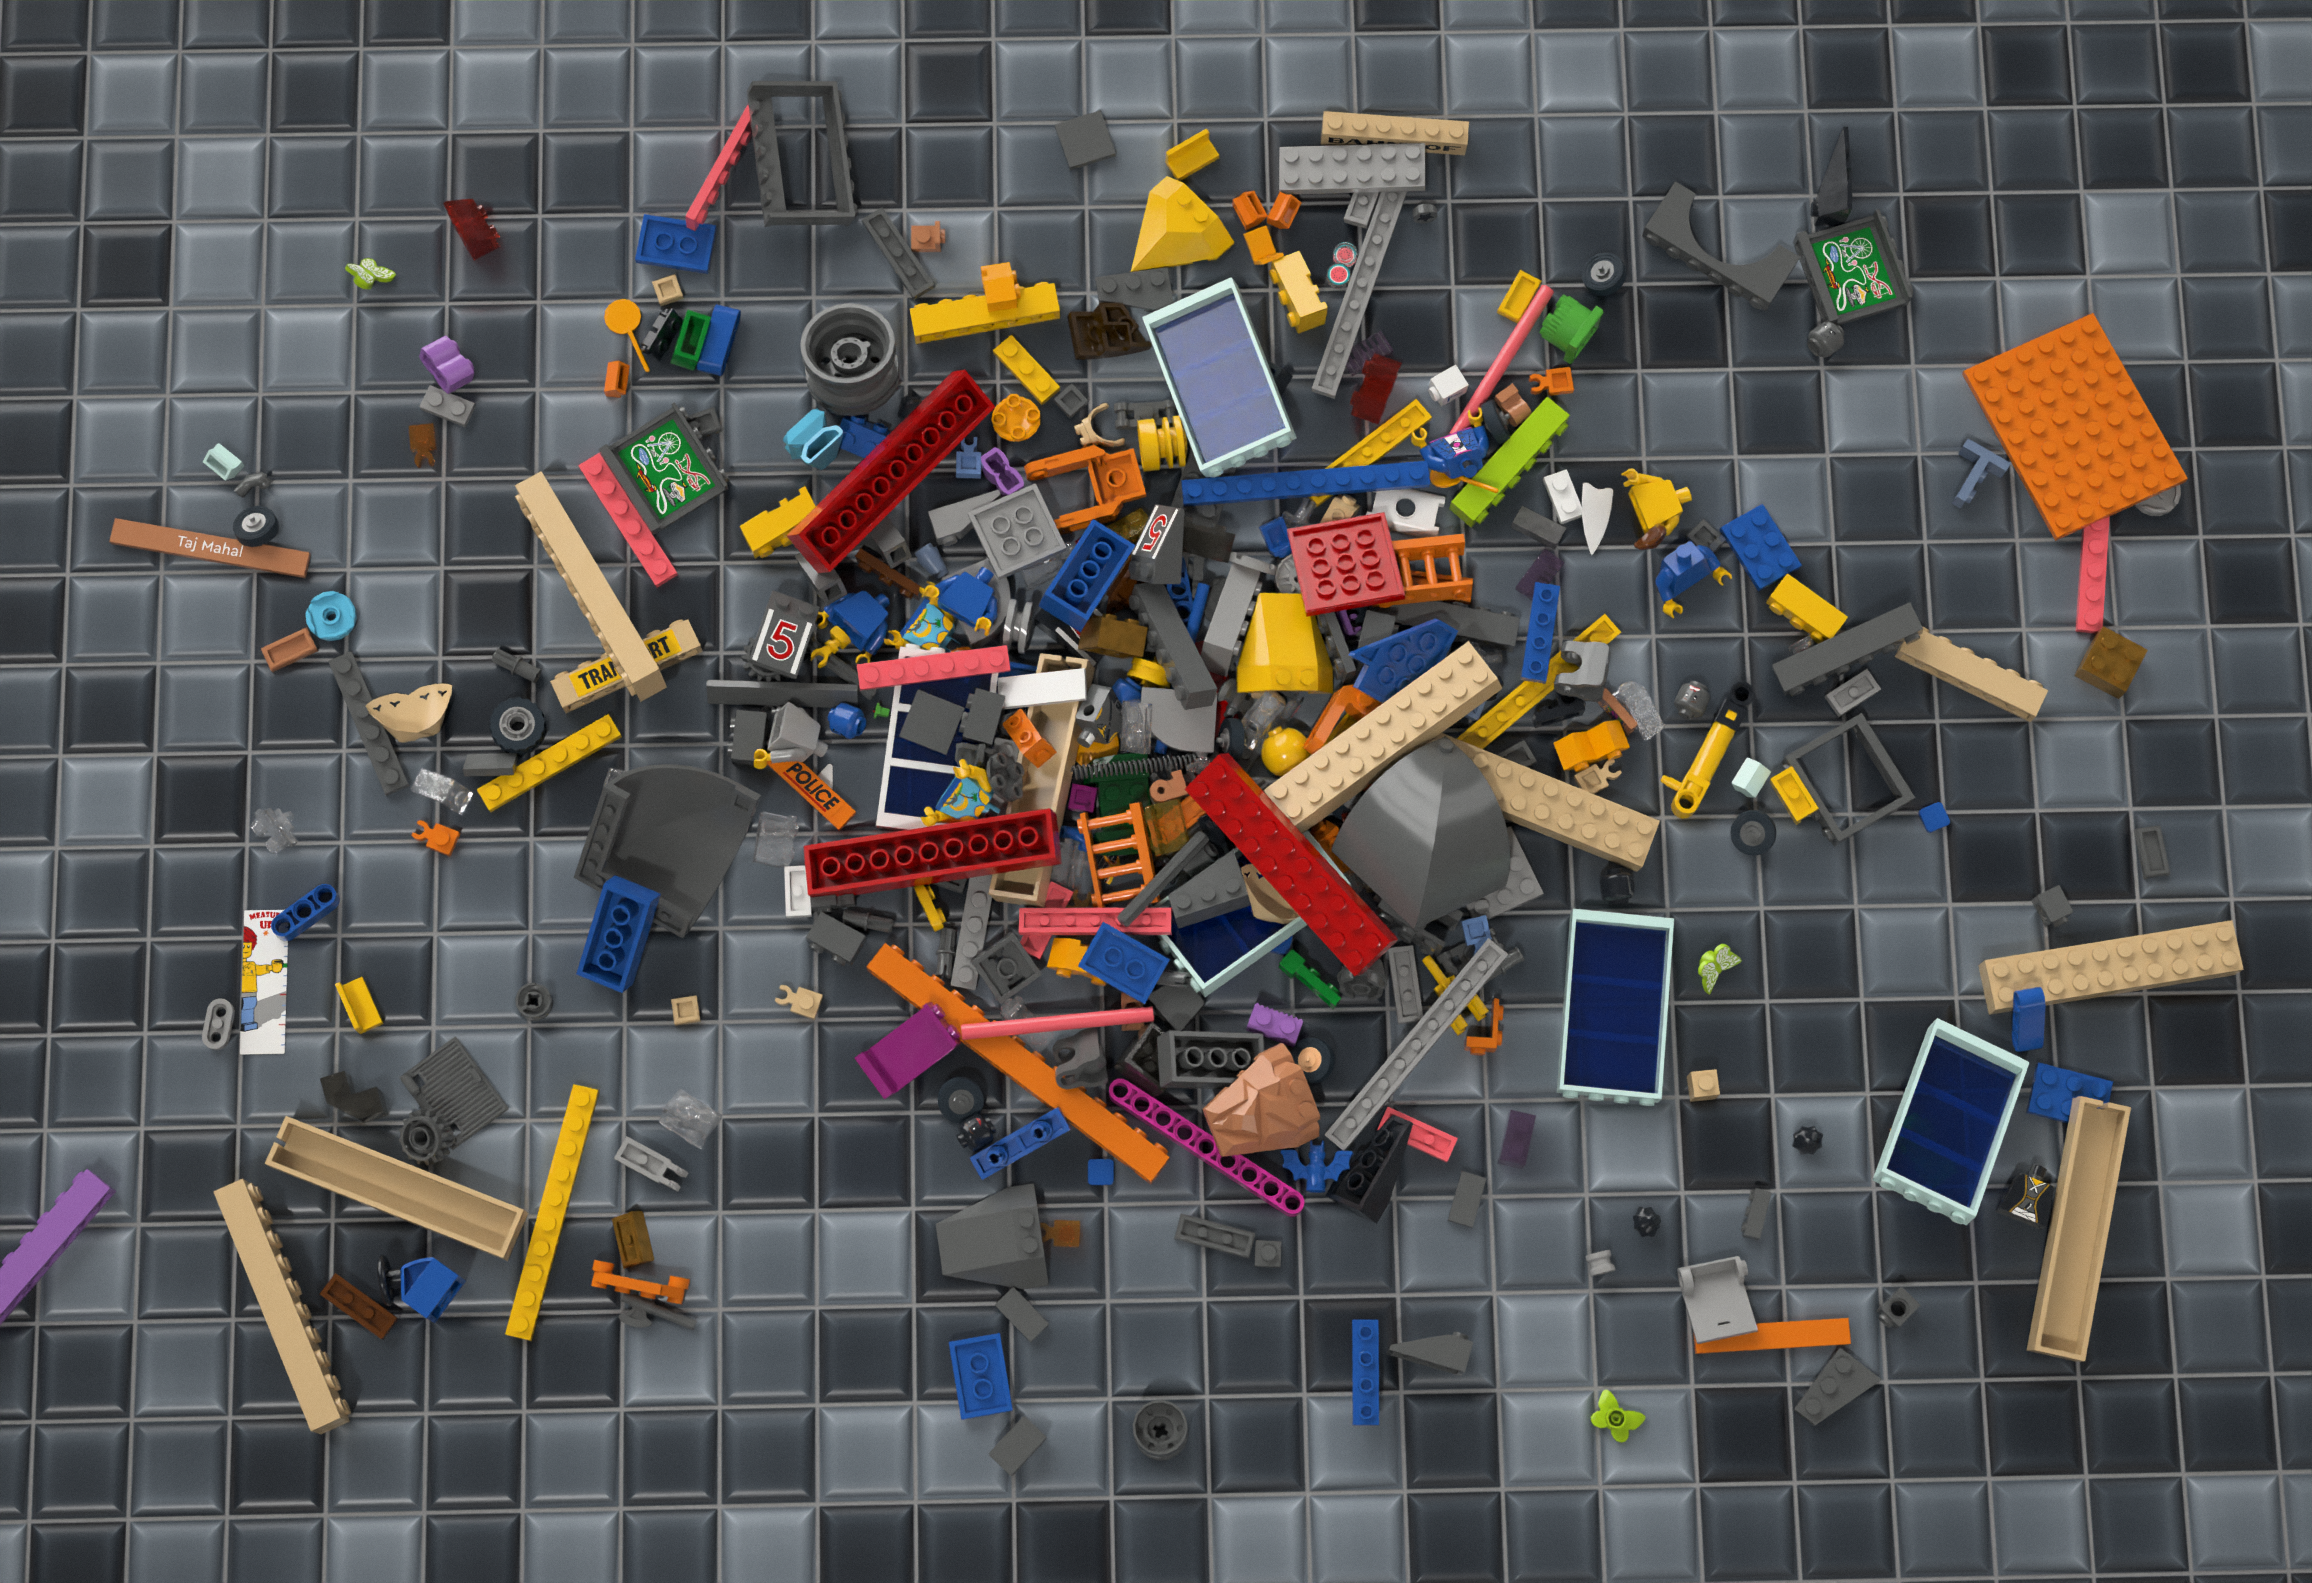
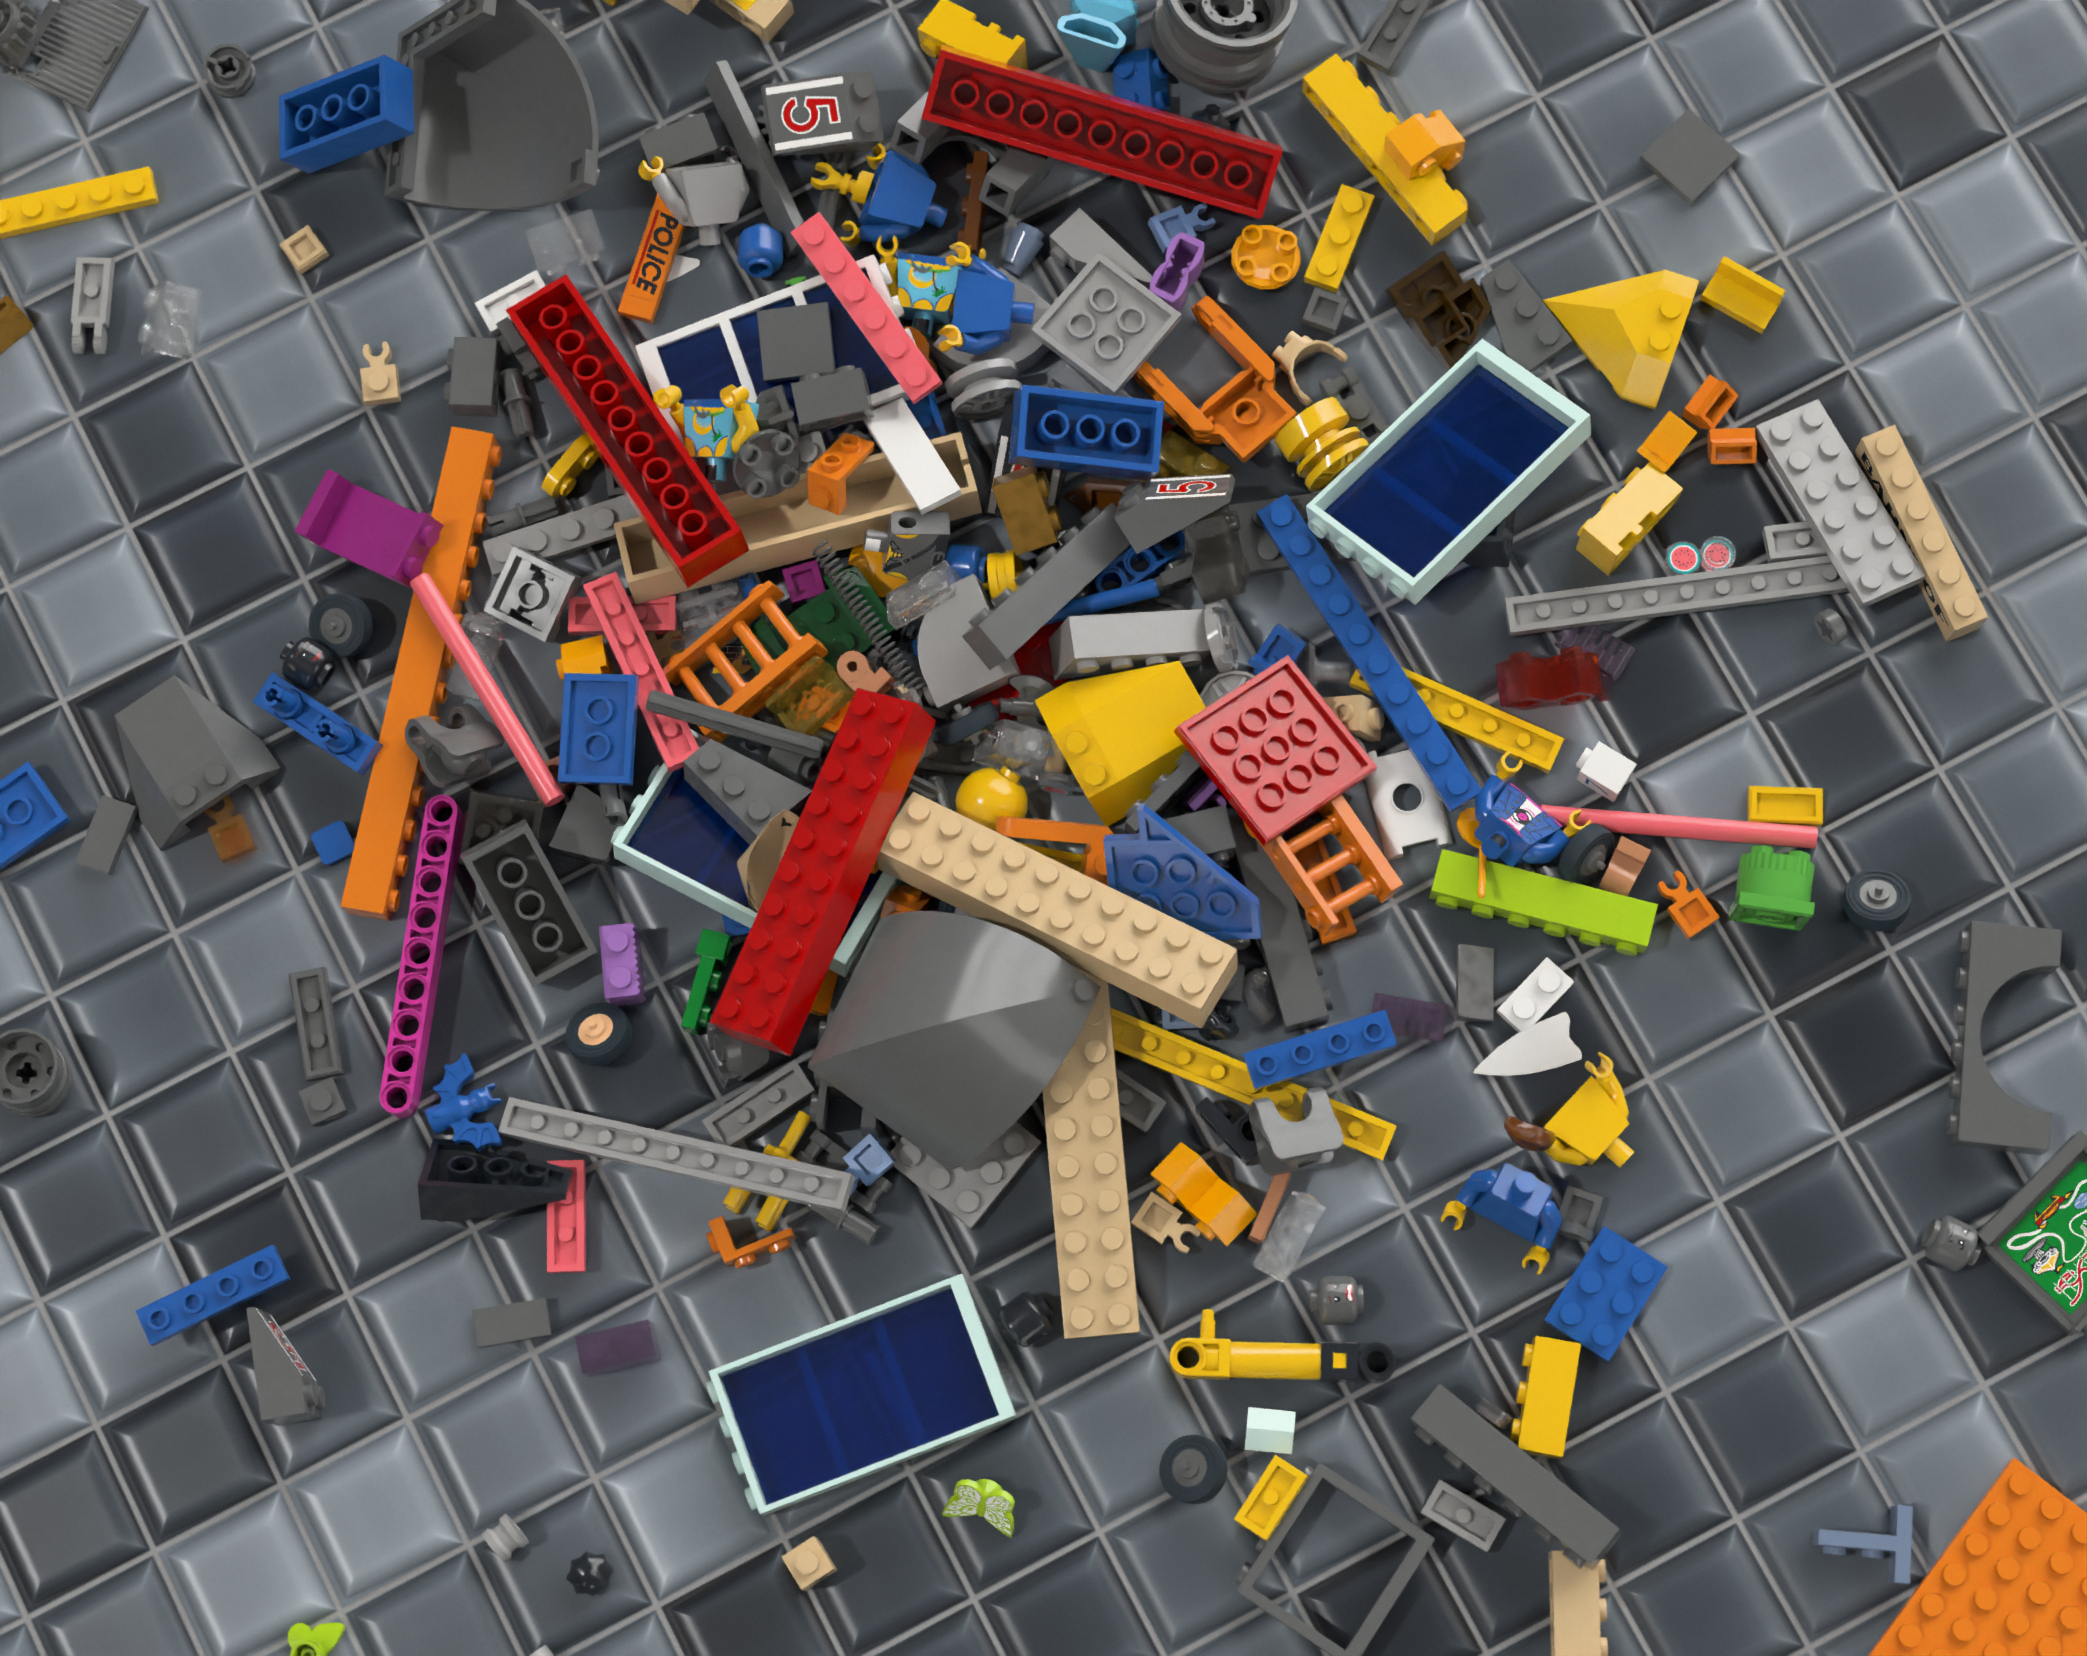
camera: 75 degrees right, 0 degrees up
(927, 238) = (1448, 33): nougat bracket -> none
(1264, 1107) = (496, 996): nougat wedge -> none

